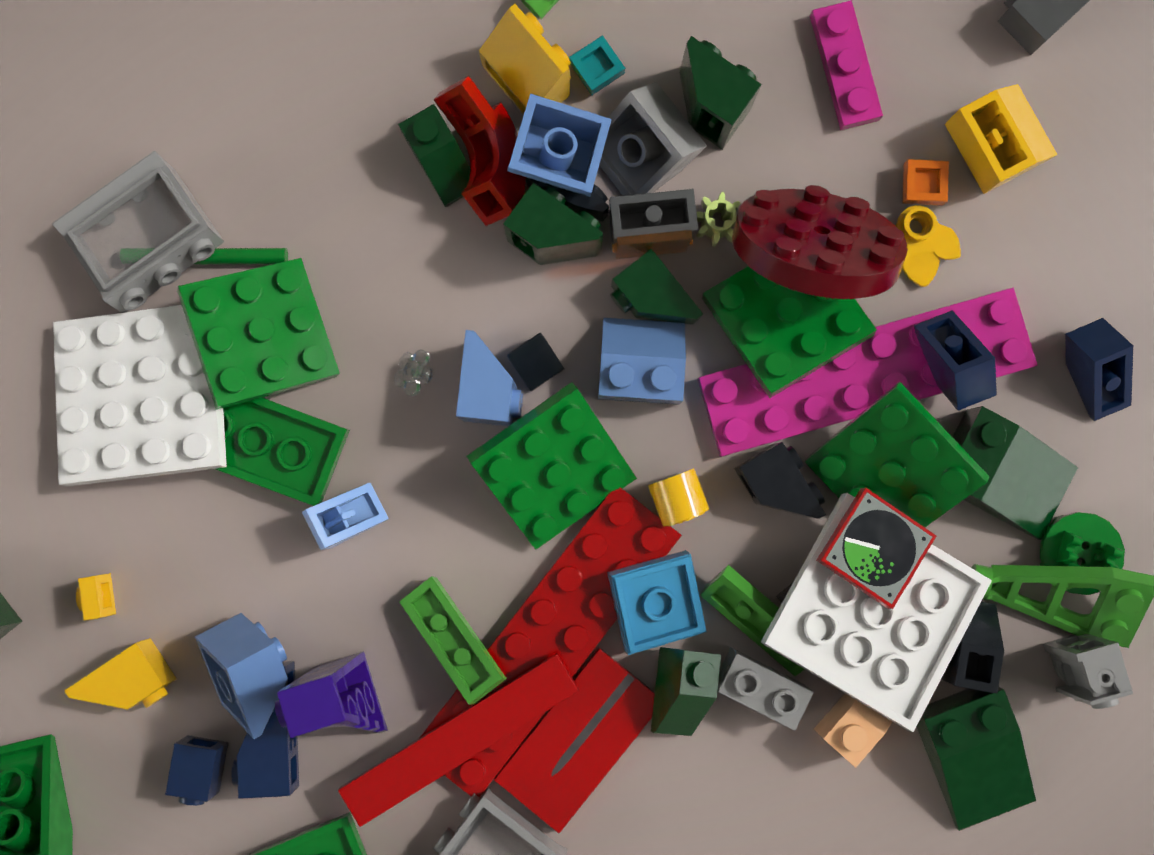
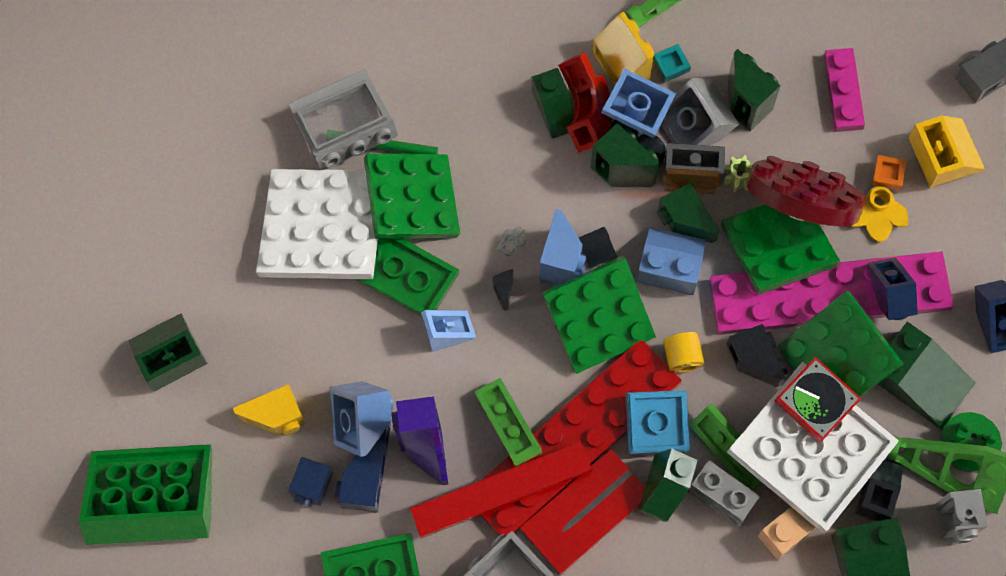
camera: 15 degrees right, 15 degrees down
(95, 596) = (263, 352): yellow plate -> none
(414, 445) = (503, 287): none -> black slope

